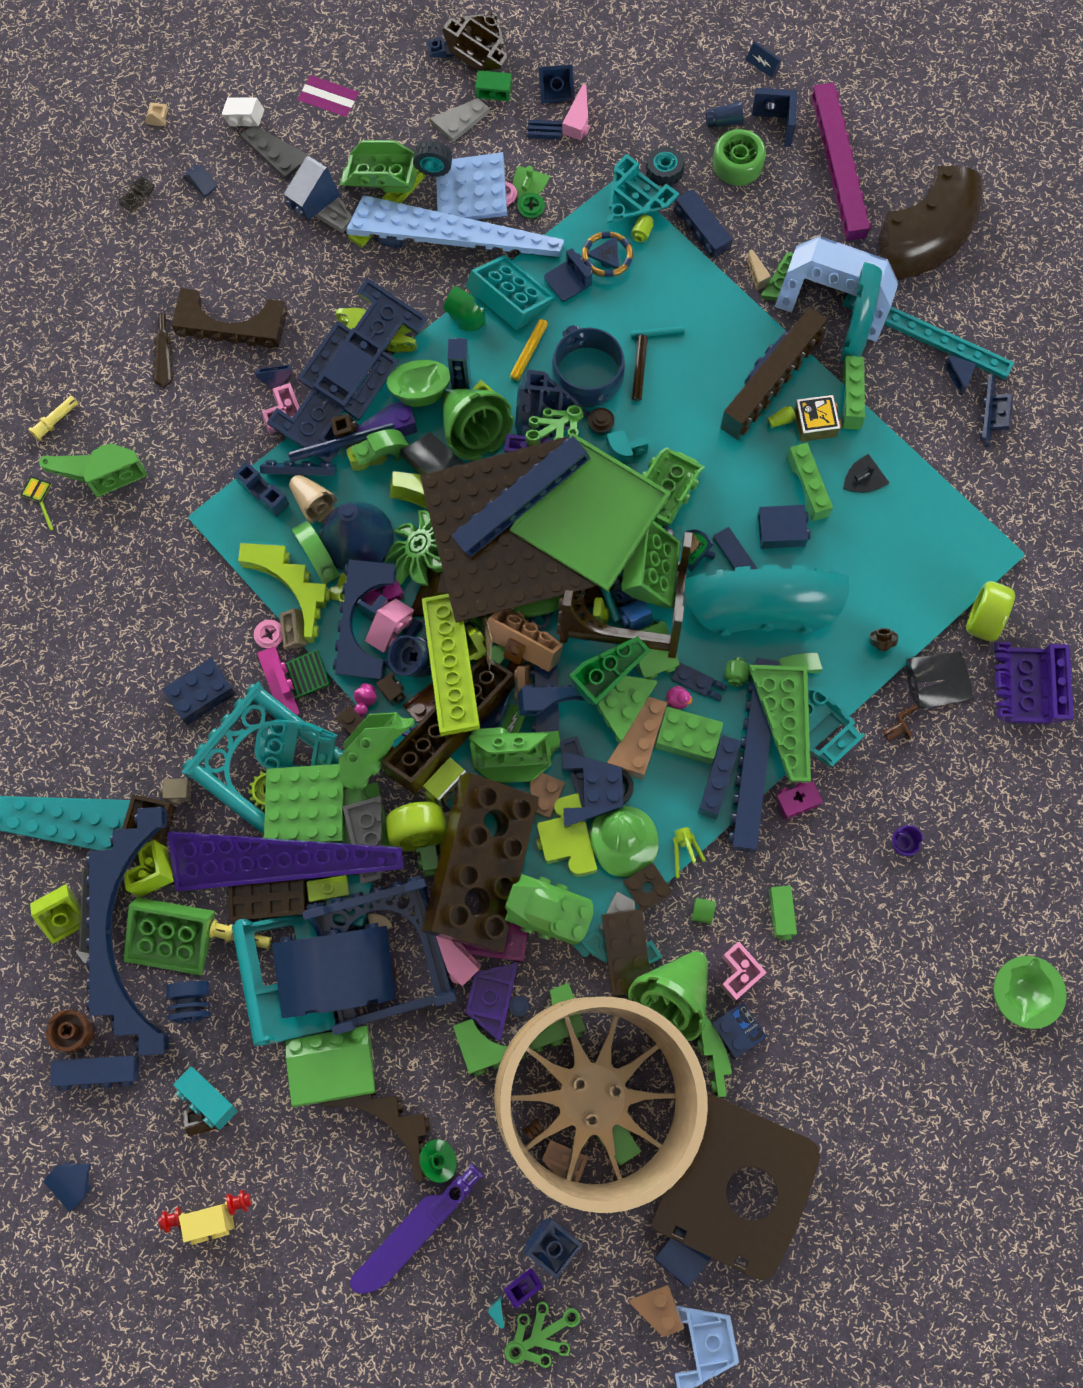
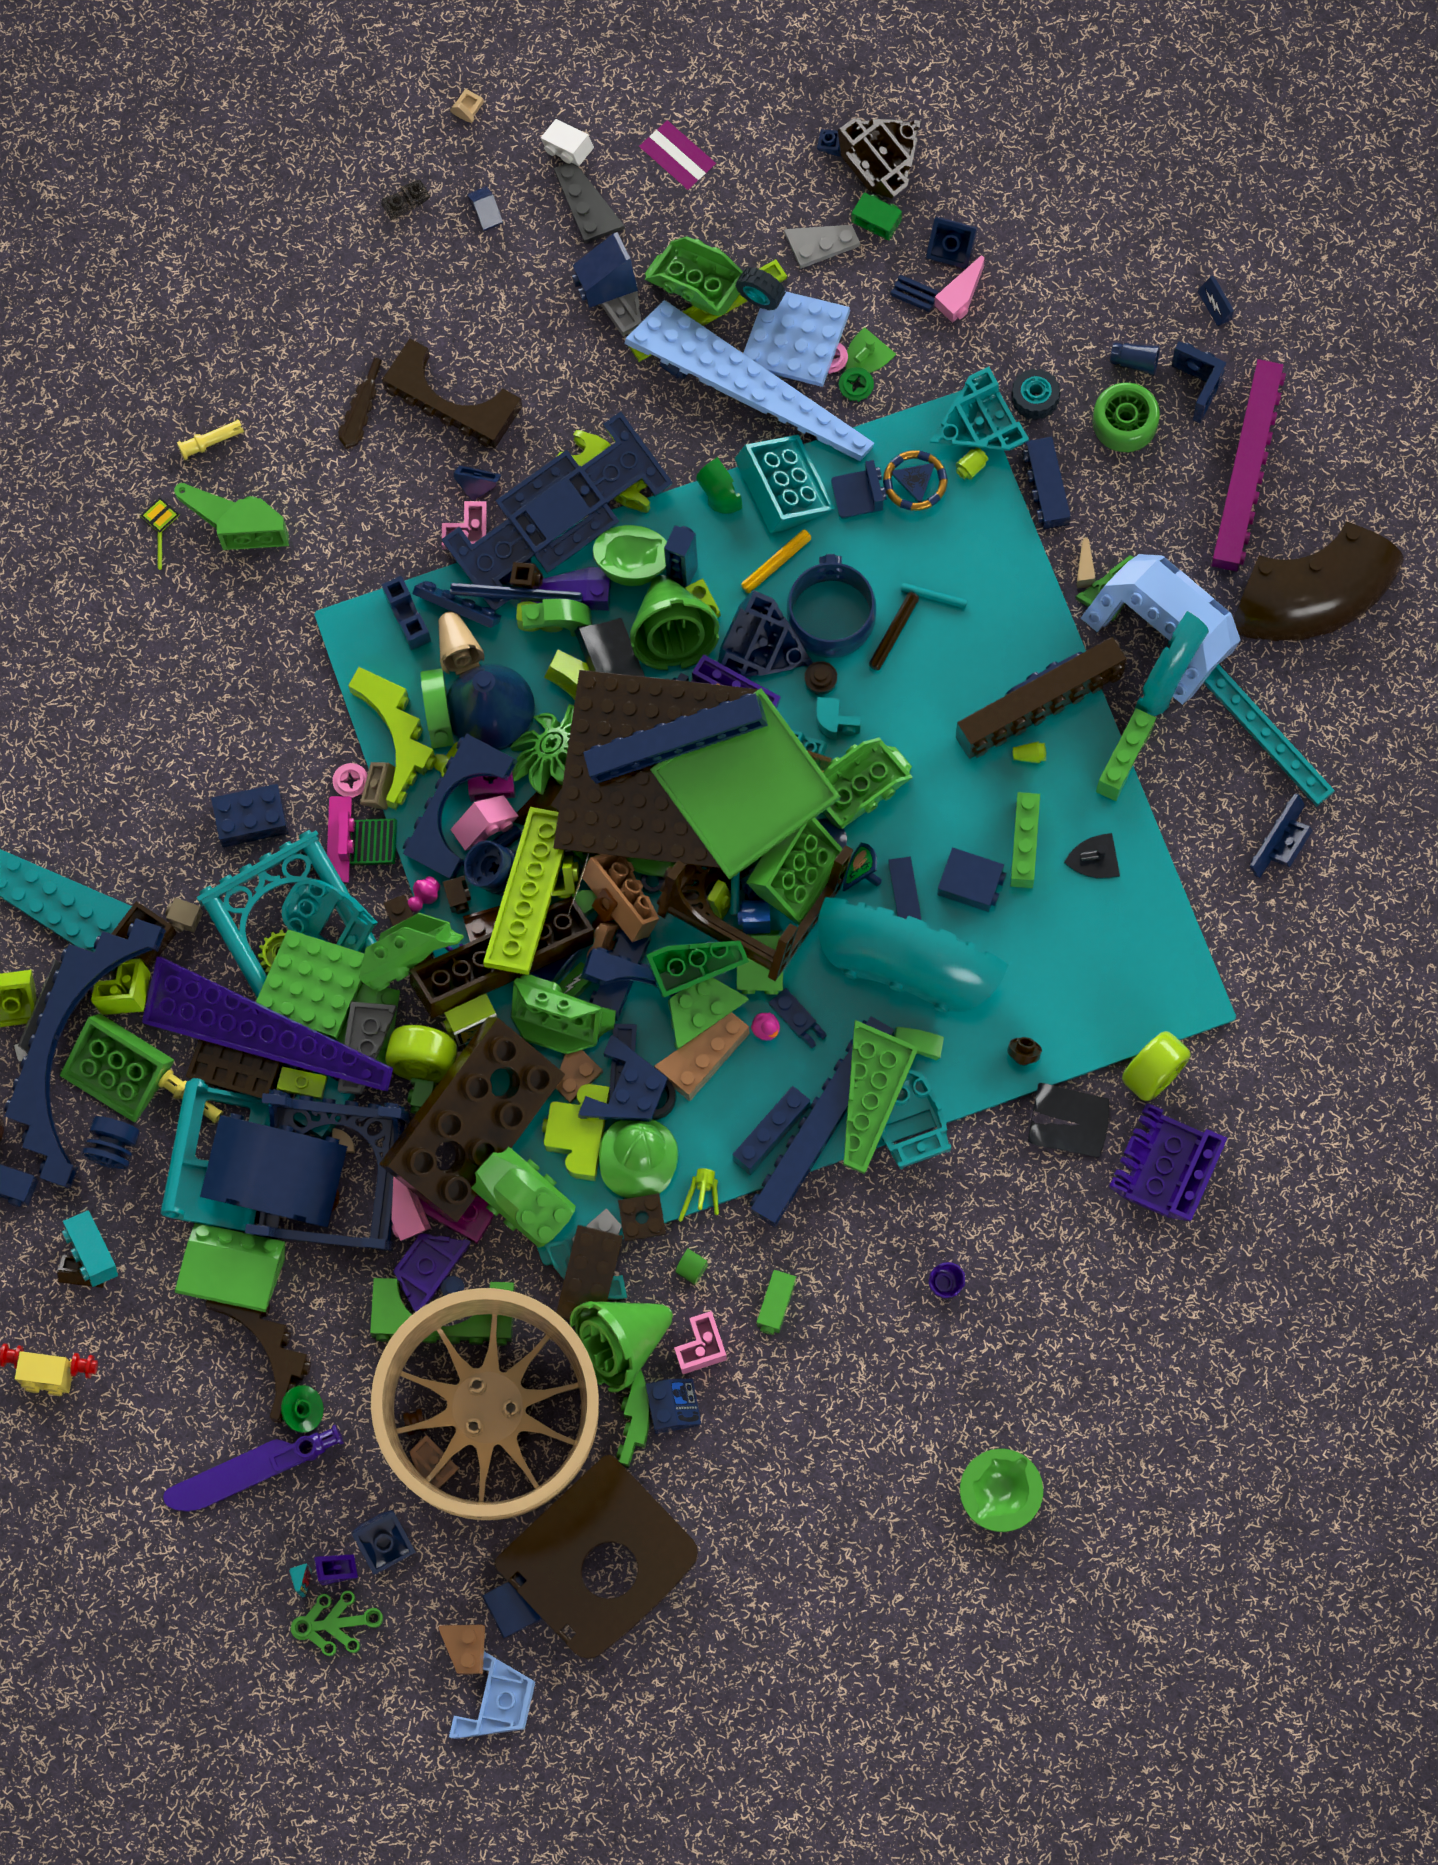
camera: 25 degrees right, 0 degrees up
(370, 612) = (468, 799): dark blue panel -> none
(572, 414) = (787, 660): bright green plant -> none
(624, 1145) = (500, 1470): bright green brick -> none
(689, 735) = (758, 1071): bright green brick -> none
(737, 672) = (842, 1023): bright green head -> none
(791, 807) = (837, 1193): magenta brick -> none
(817, 418) = (1069, 769): piece -> none
(900, 727) = (1000, 1156): reddish brown bracket -> none
(960, 372) = (1266, 778): dark blue slope -> none

